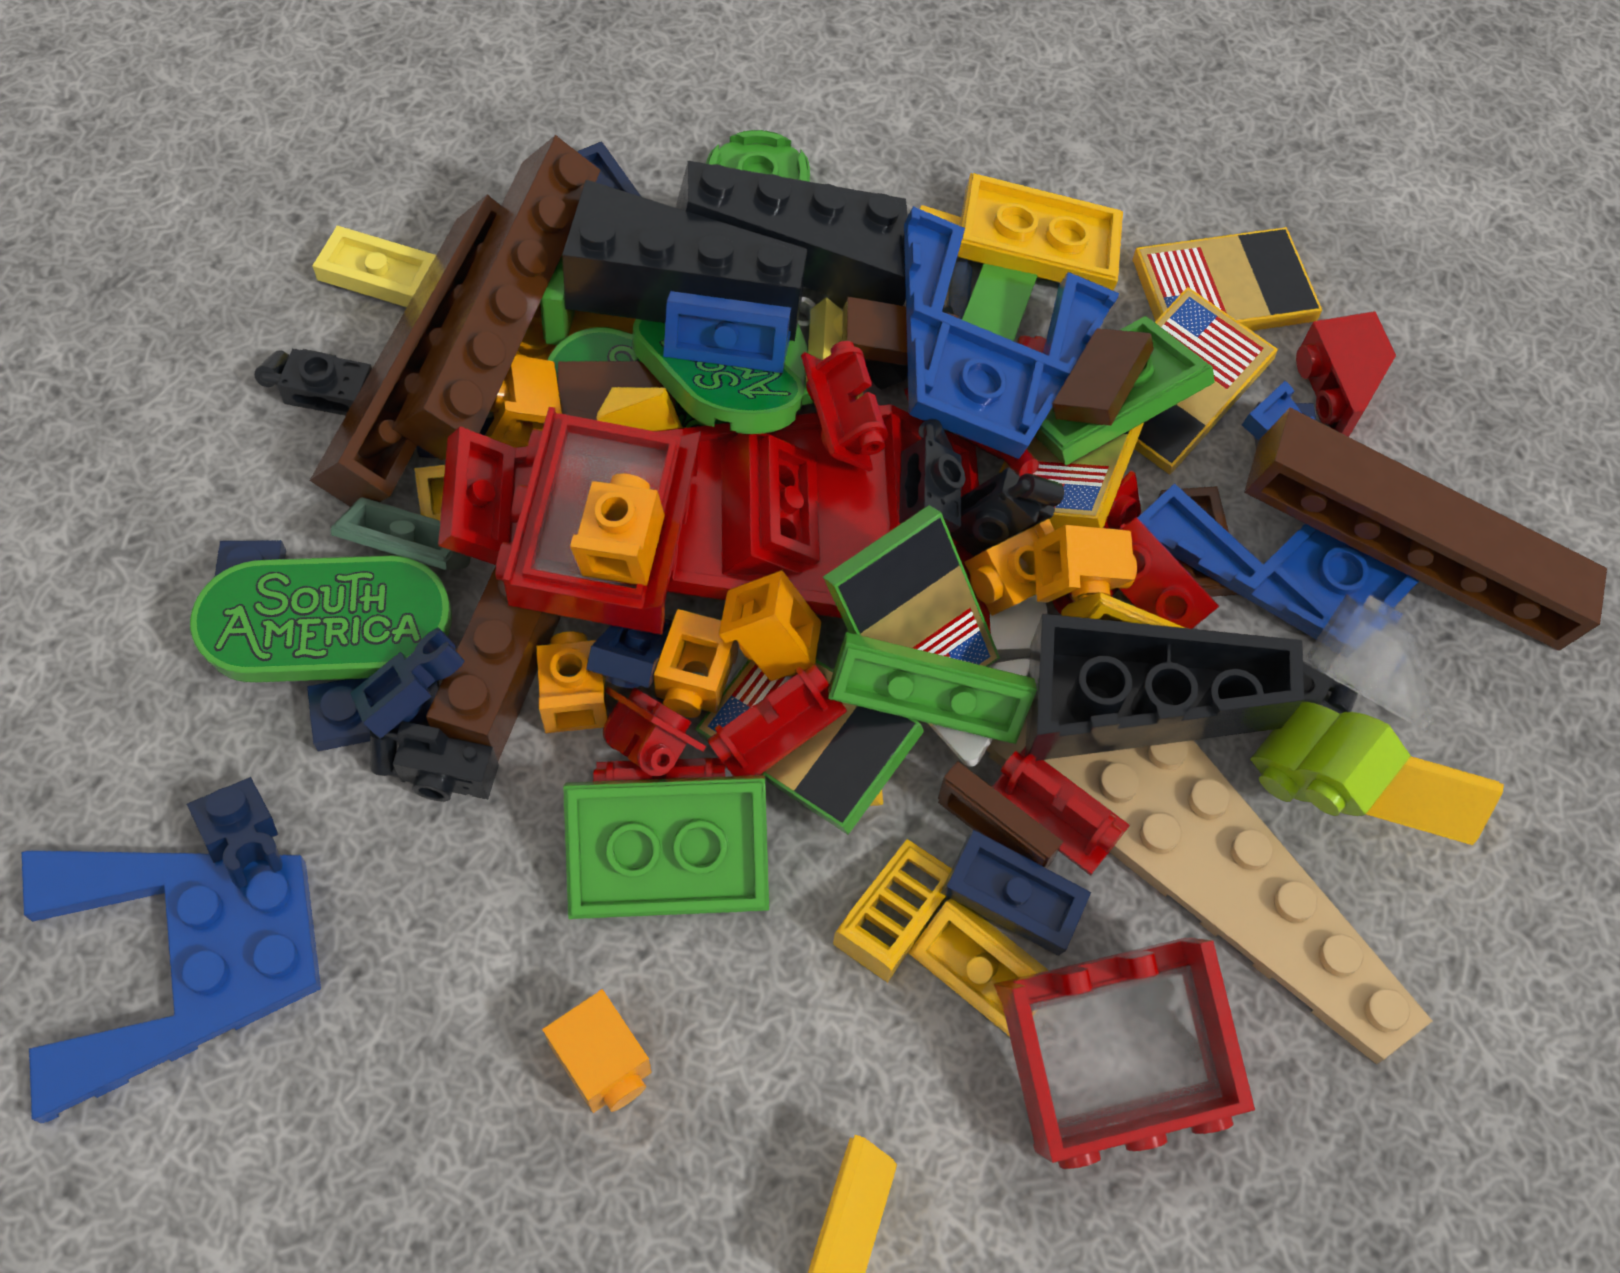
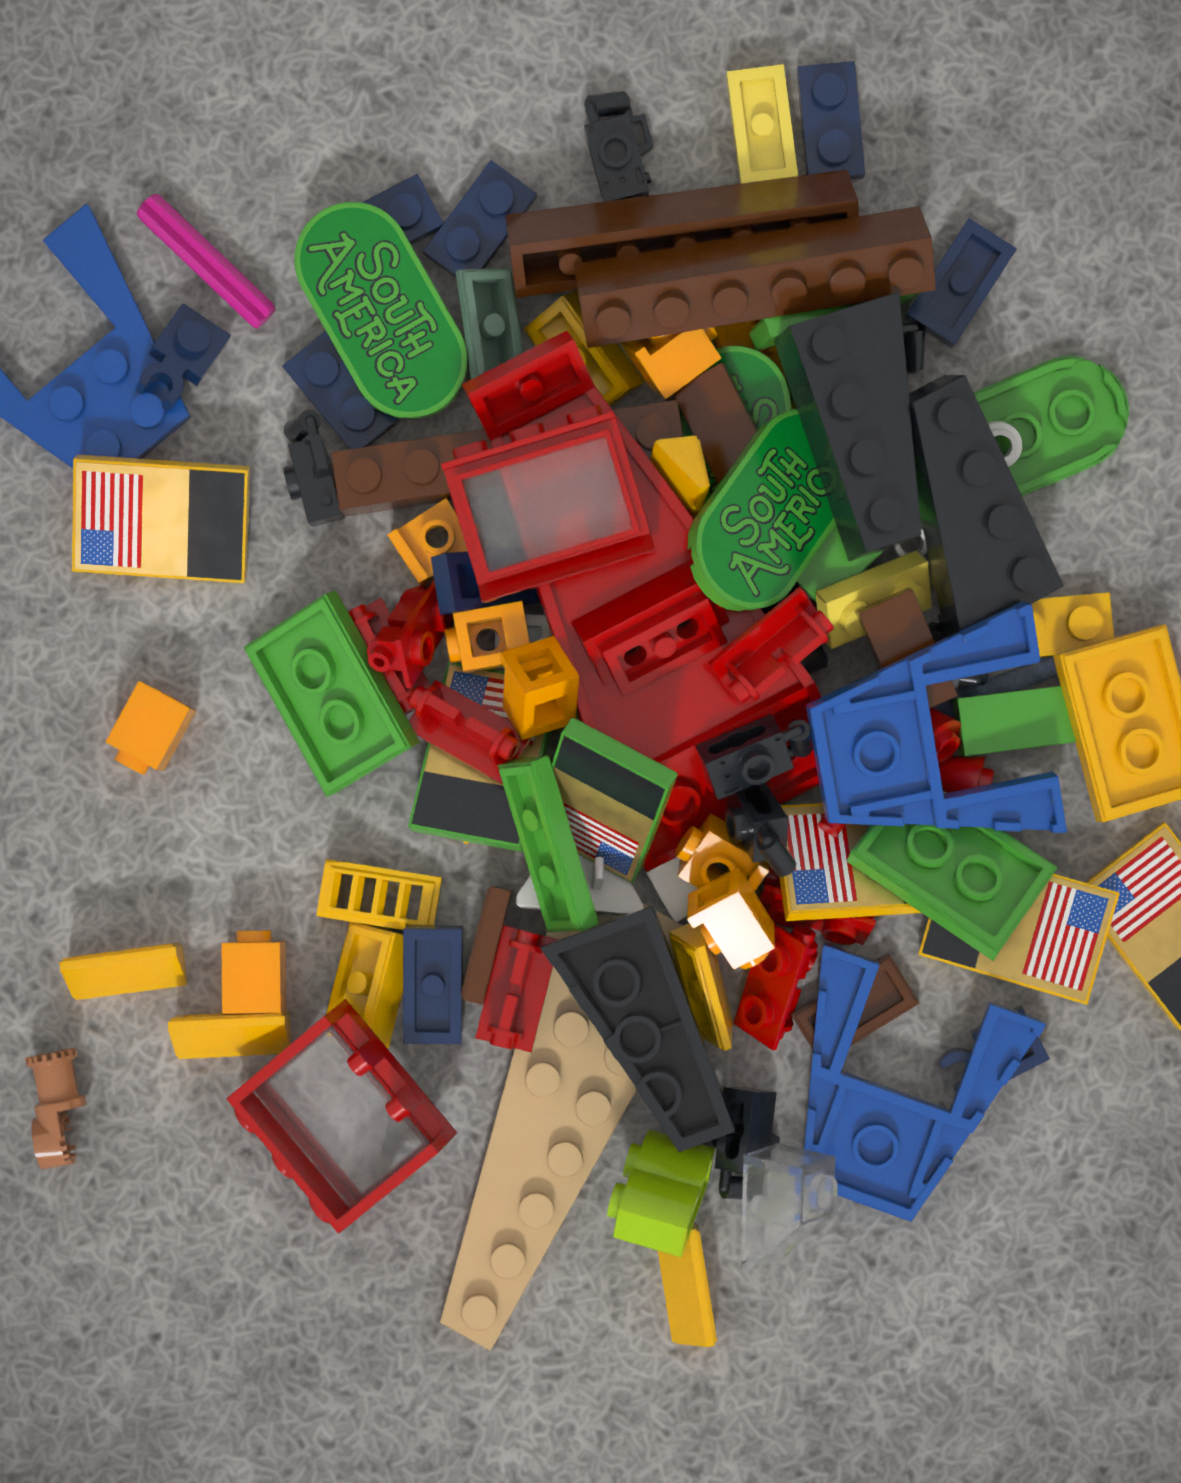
camera: 65 degrees right, 25 degrees up
(161, 768) = (206, 260): none -> dark pink axle
(301, 511) = (479, 222): none -> dark blue plate
(384, 934) = (160, 518): none -> tile
(402, 220) = (831, 118): none -> dark blue plate
(402, 684) = (345, 414): dark blue plate -> none
(623, 547) = (509, 557): light orange brick -> none
(726, 332) = (799, 508): blue panel -> none
(922, 1072) = (253, 973): none -> light orange brick
(975, 1135) = (229, 1034): none -> yellow slope
(1103, 376) = (947, 858): reddish brown tile -> none
(1345, 366) = (1115, 1079): red slope -> none
(1427, 530) = (939, 1204): reddish brown brick -> none

